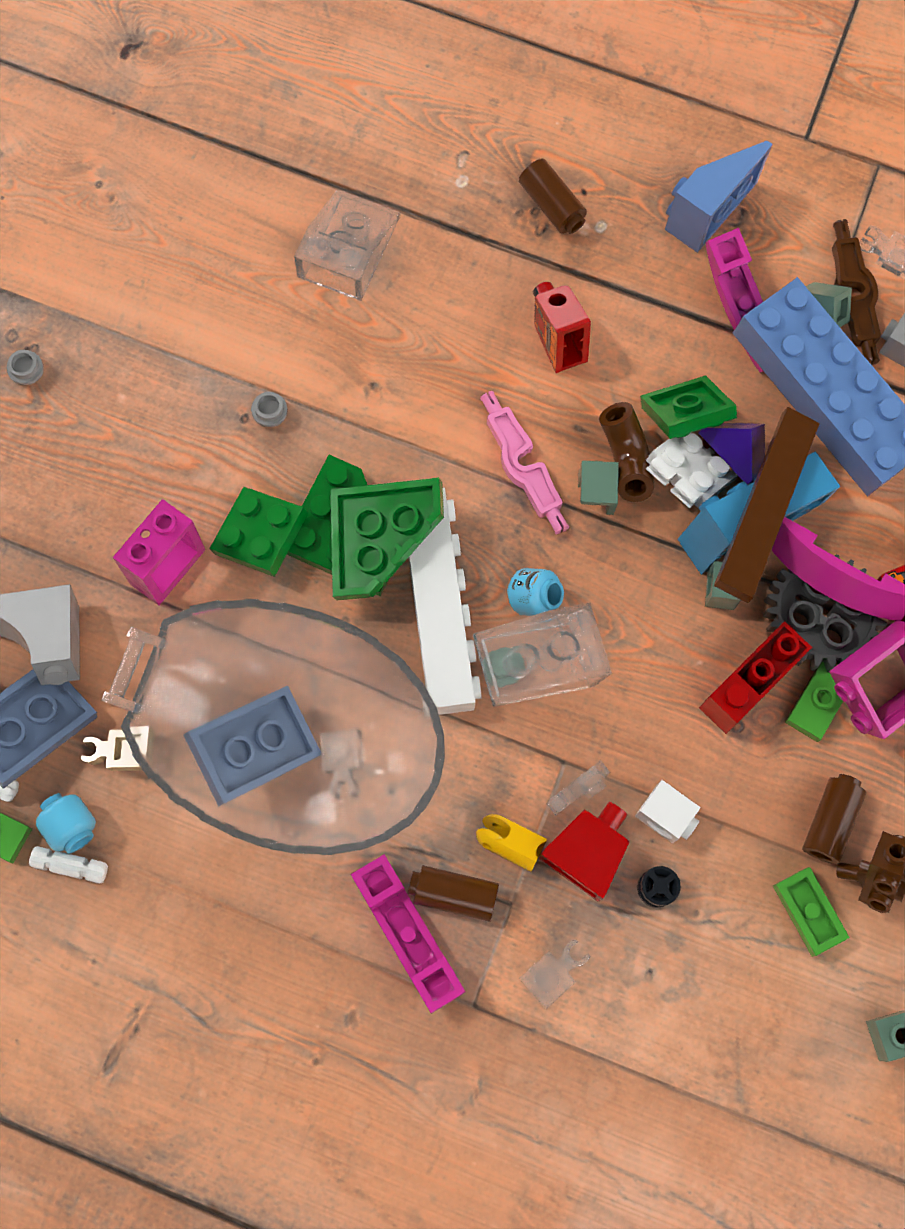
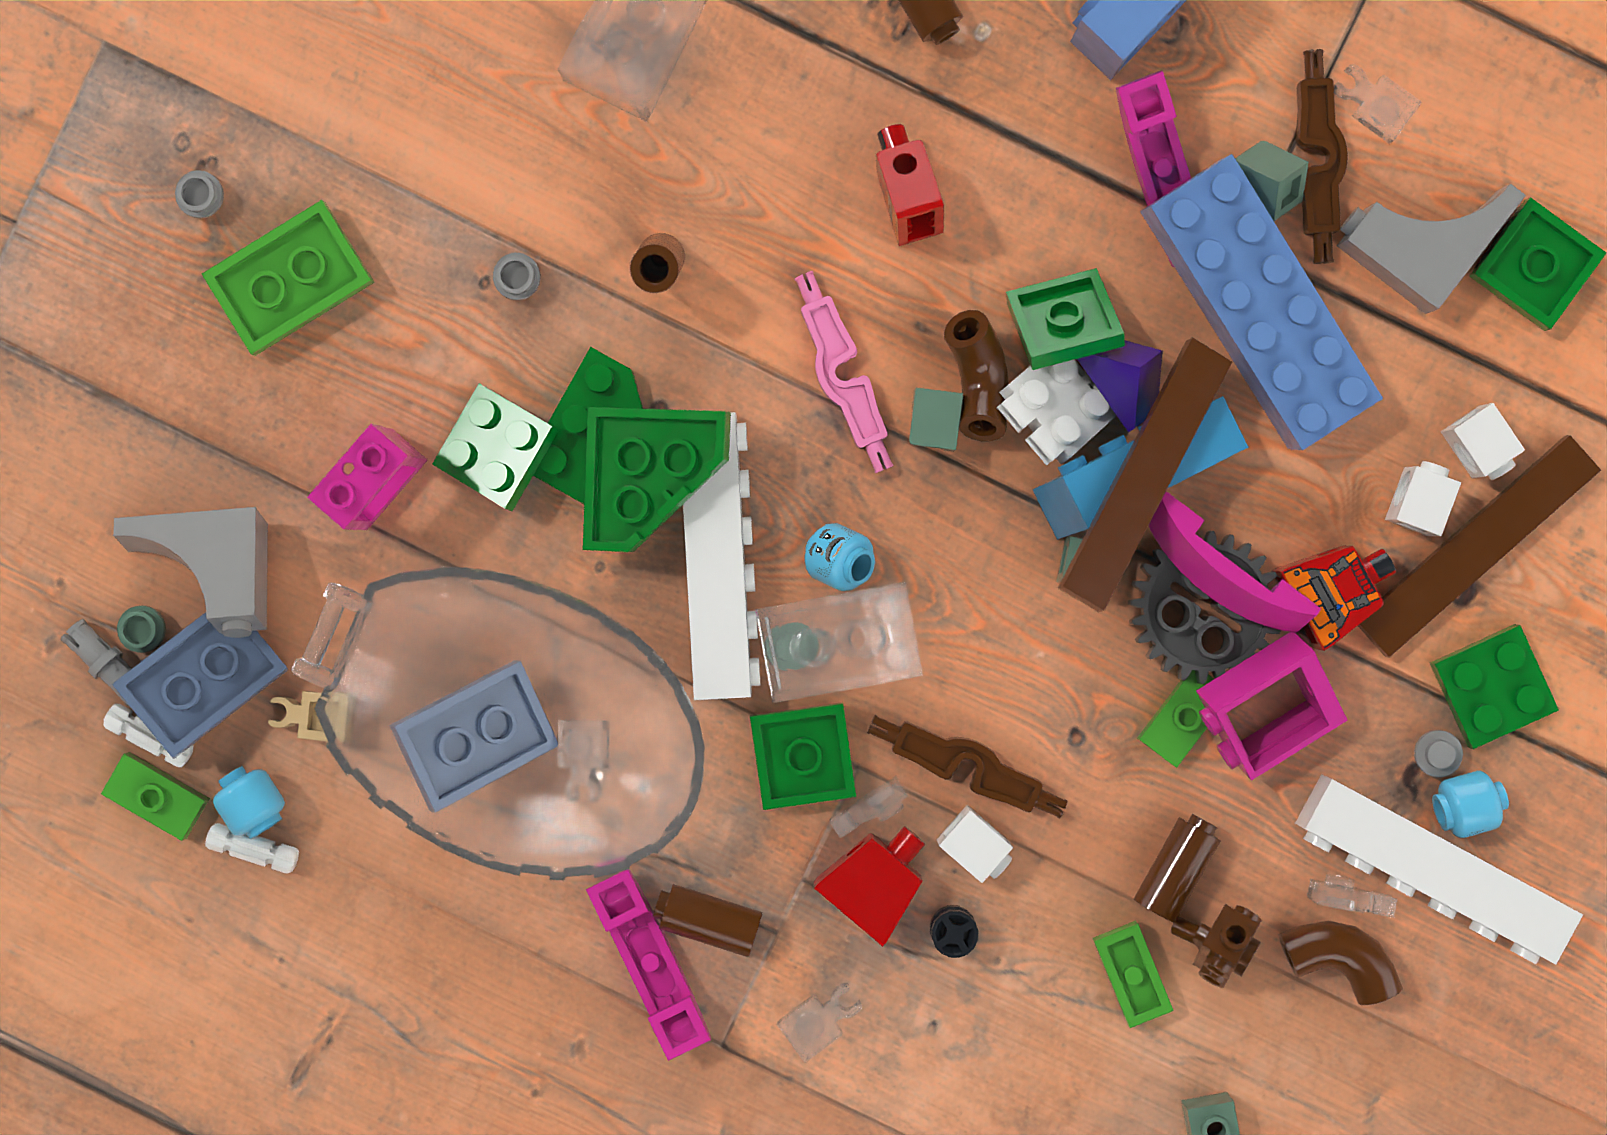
camera: 10 degrees right, 15 degrees up
(93, 420) = (288, 278): none -> bright green plate
(373, 373) = (650, 275): none -> reddish brown brick
(510, 841) = (785, 864): yellow piece -> none
(520, 752) = (803, 756): none -> green plate
(672, 759) = (990, 775): none -> reddish brown piece
(755, 677) = (1104, 687): red slope -> none

